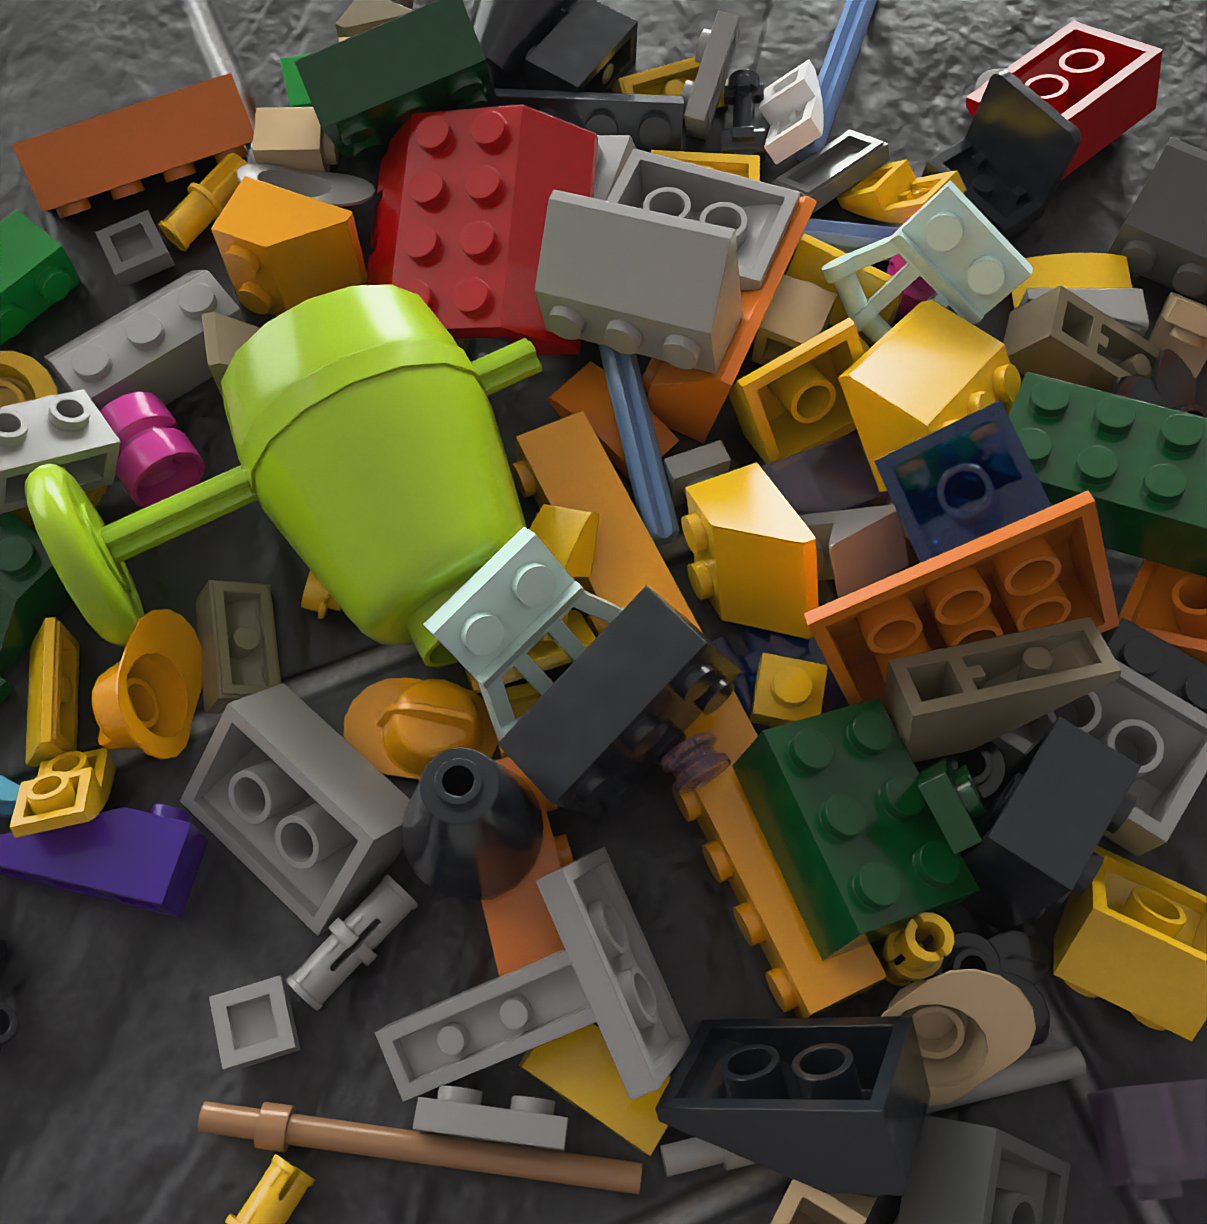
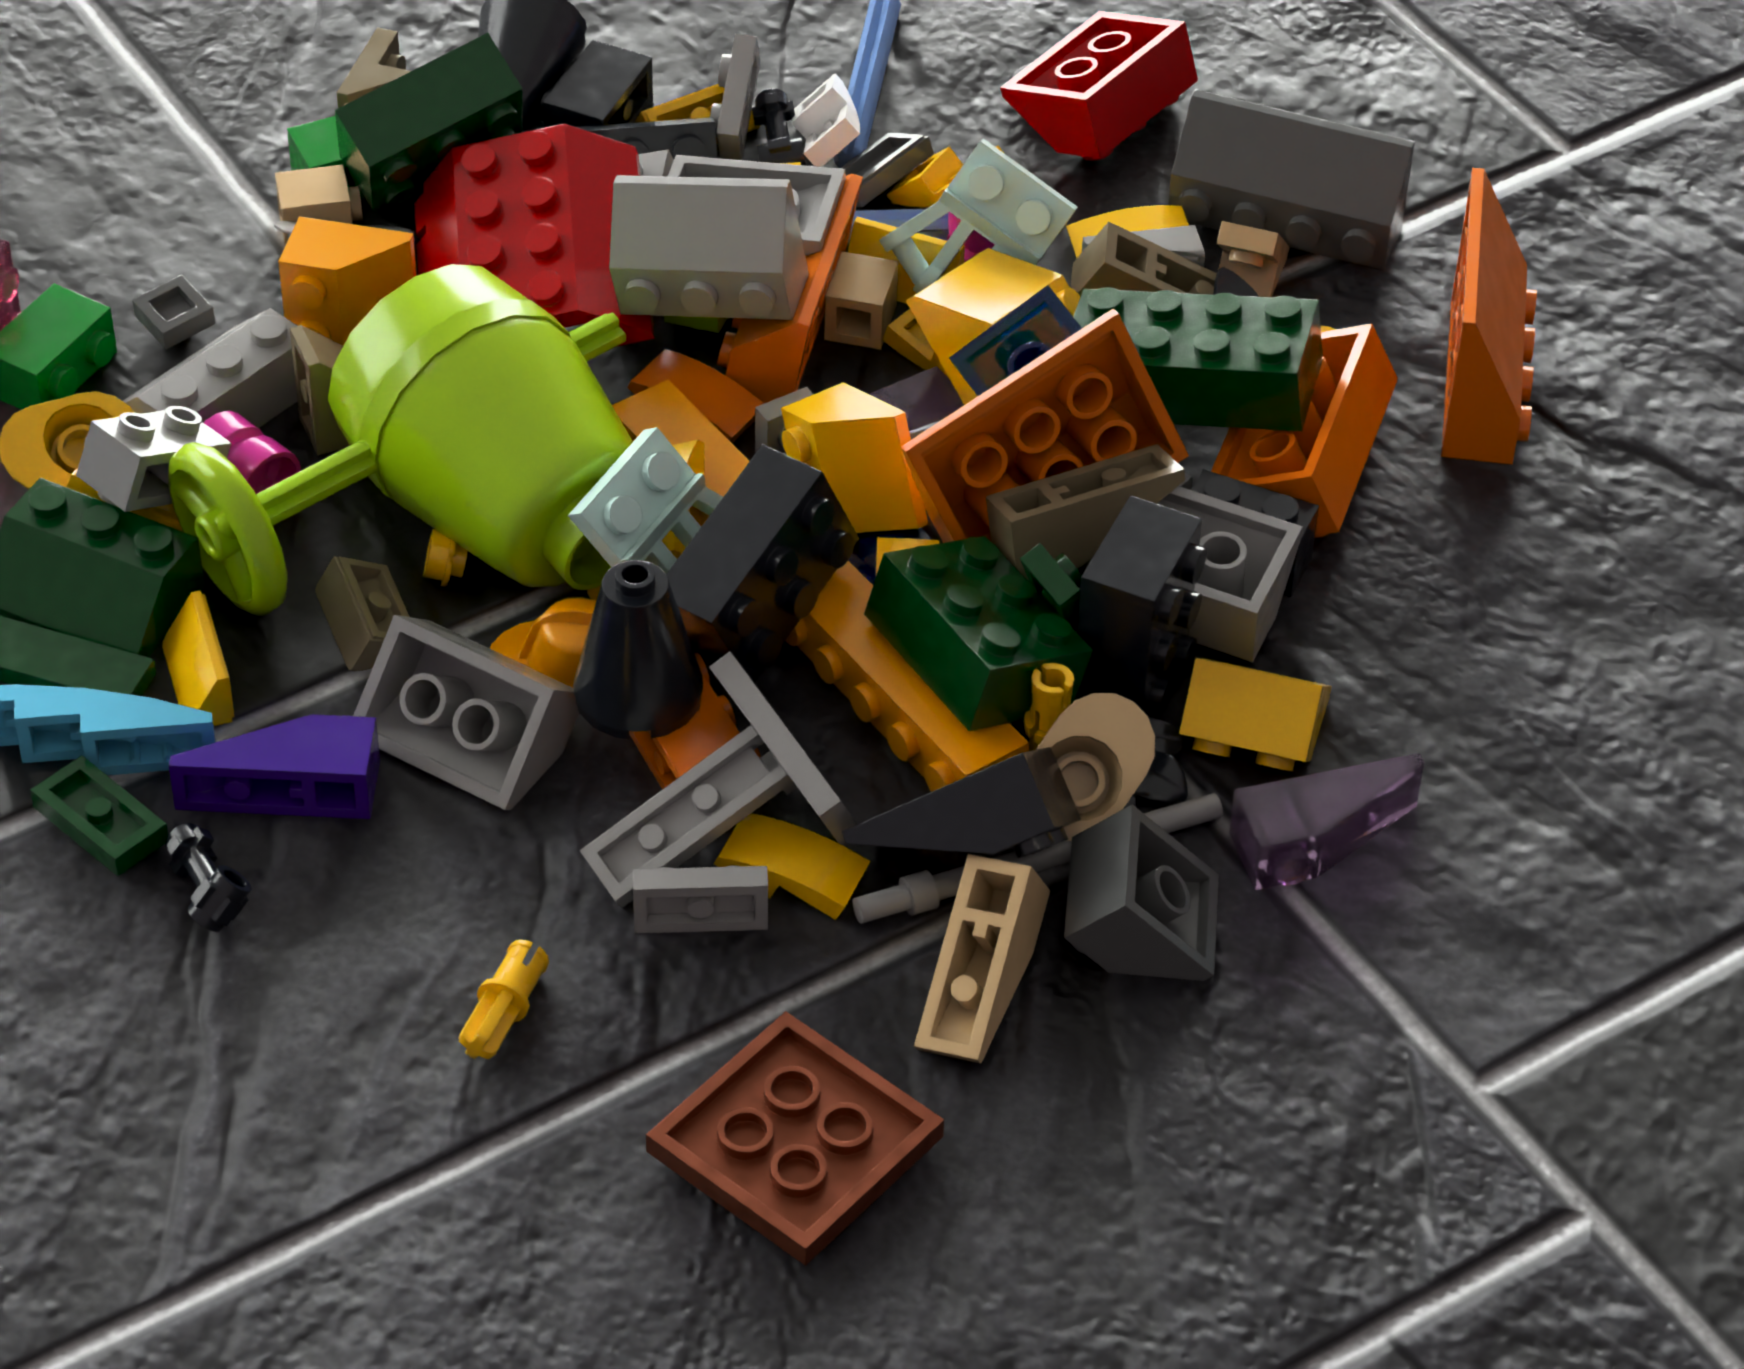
camera: 10 degrees left, 20 degrees down
(65, 792) = (251, 708): yellow slope -> none
(134, 144) = (150, 220): orange slope -> none
(153, 689) = (298, 642): light orange piece -> none
(202, 203) = (237, 263): yellow axle -> none
(254, 1023) = (466, 865): light grey plate -> none
(279, 1126) = (505, 929): medium nougat bar -> none
(351, 942) = (519, 828): light grey pin -> none
(640, 445) = (718, 383): medium blue axle -> none
(695, 762) = (830, 607): bush -> none
(798, 396) = (871, 333): yellow slope -> none
(1011, 154) = (1054, 126): black bracket -> none

